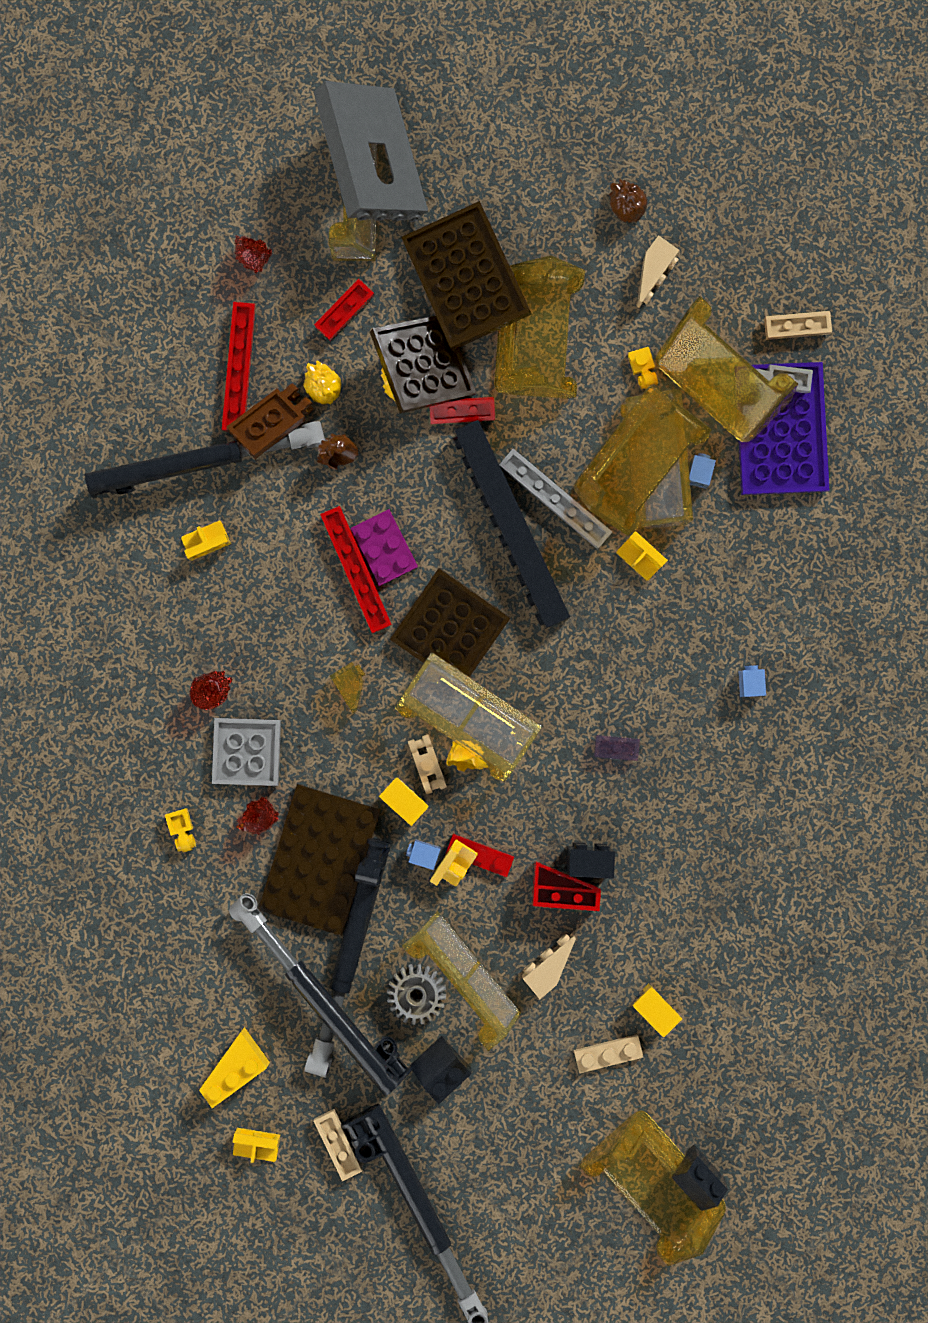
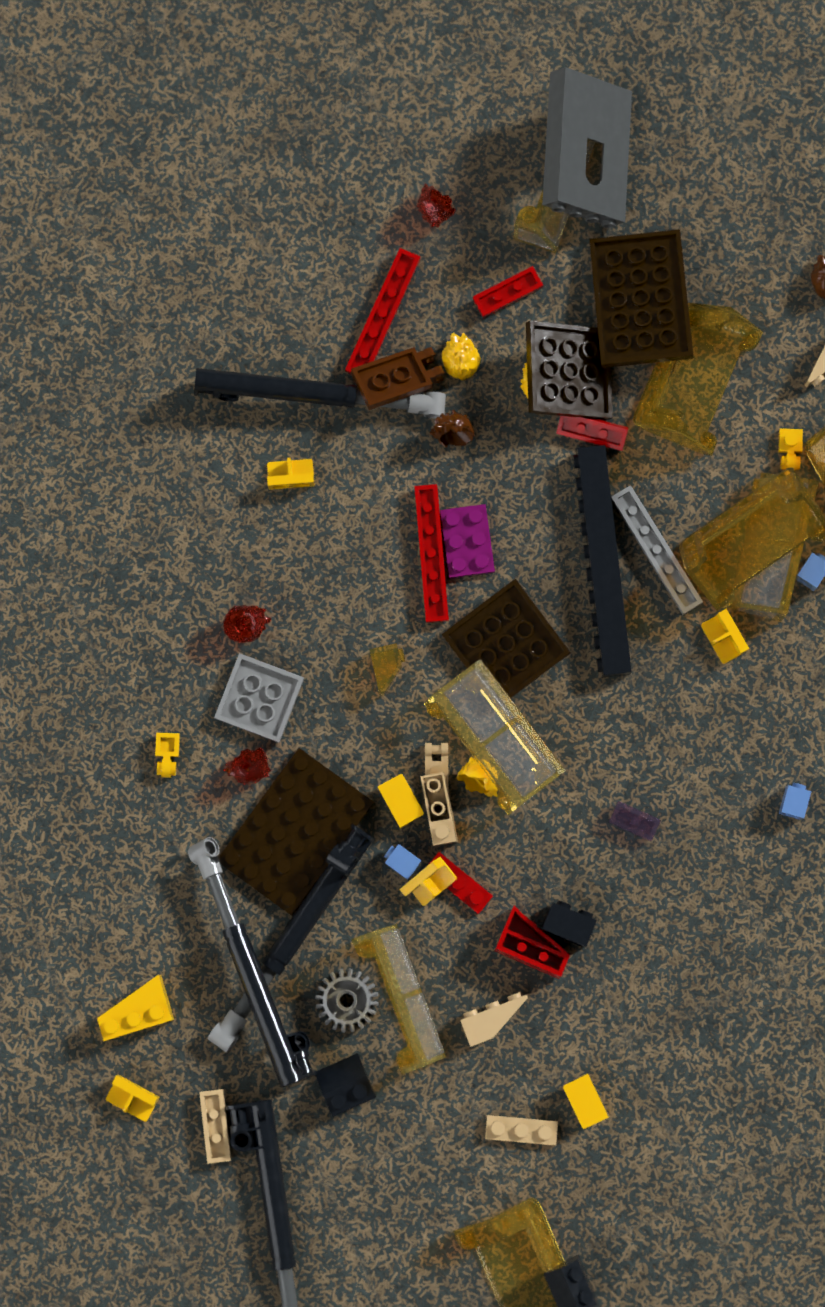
camera: 30 degrees right, 5 degrees down
(441, 798) = (439, 809): none -> tan slope

